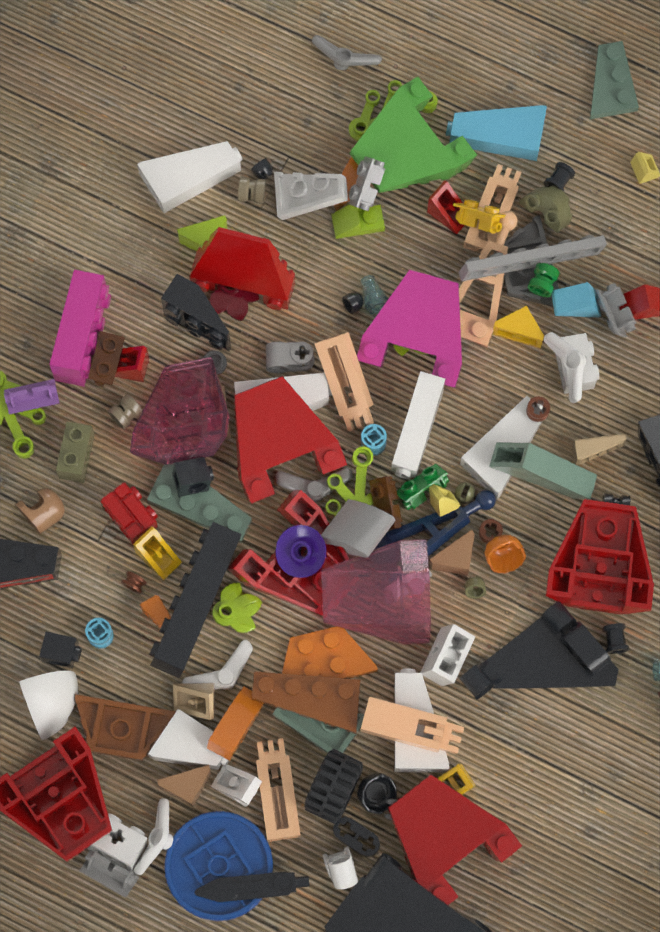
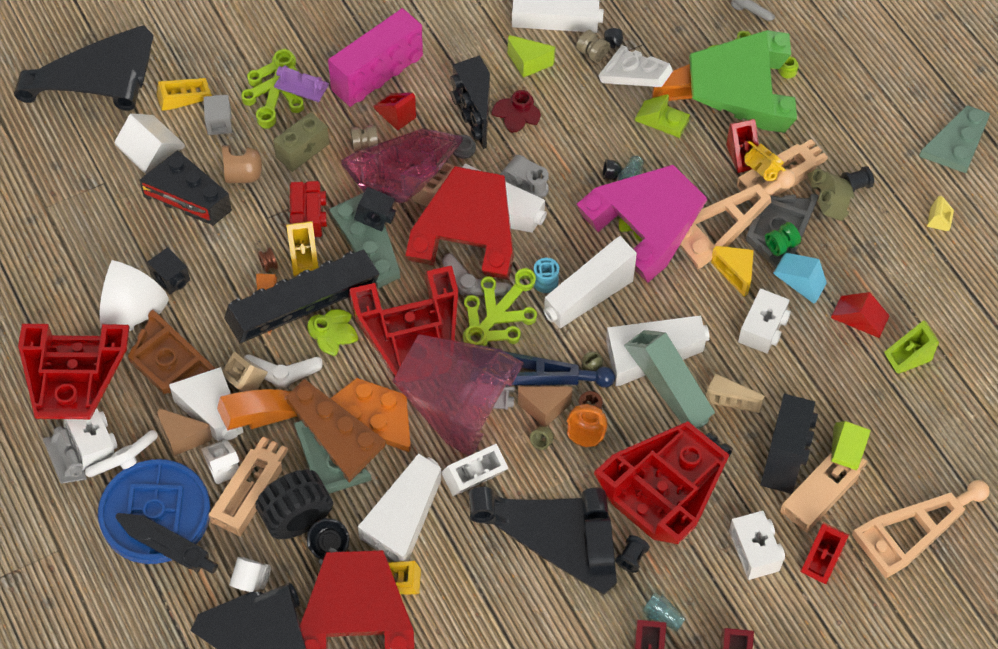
camera: 35 degrees right, 15 degrees down
(102, 636) = (209, 278): medium azure wheel -> none
(106, 358) = (379, 92): reddish brown hinge -> none
(243, 264) = (538, 76): red wedge -> none
(289, 548) = (415, 312): dark purple dish -> none
(341, 371) = (557, 208): light nougat hinge -> none
(358, 528) = (475, 323): light grey slope -> none
(361, 832) = (290, 563): black beam -> none
(368, 173) = (693, 75): light grey hinge -> none
(383, 492) = (520, 314): reddish brown hinge -> none
(400, 725) = (387, 488): light nougat hinge -> none
(413, 491) = (549, 333): green hinge -> none
(442, 500) = (568, 353): light yellow slope -> none
(501, 131) = (835, 119): medium azure slope -> none
(525, 259) = (779, 213): light grey plate -> none
(530, 410) = (699, 336): copper bush -> none
(572, 361) = (759, 309): white piece -> none
(619, 319) = (828, 310): light grey hinge -> none

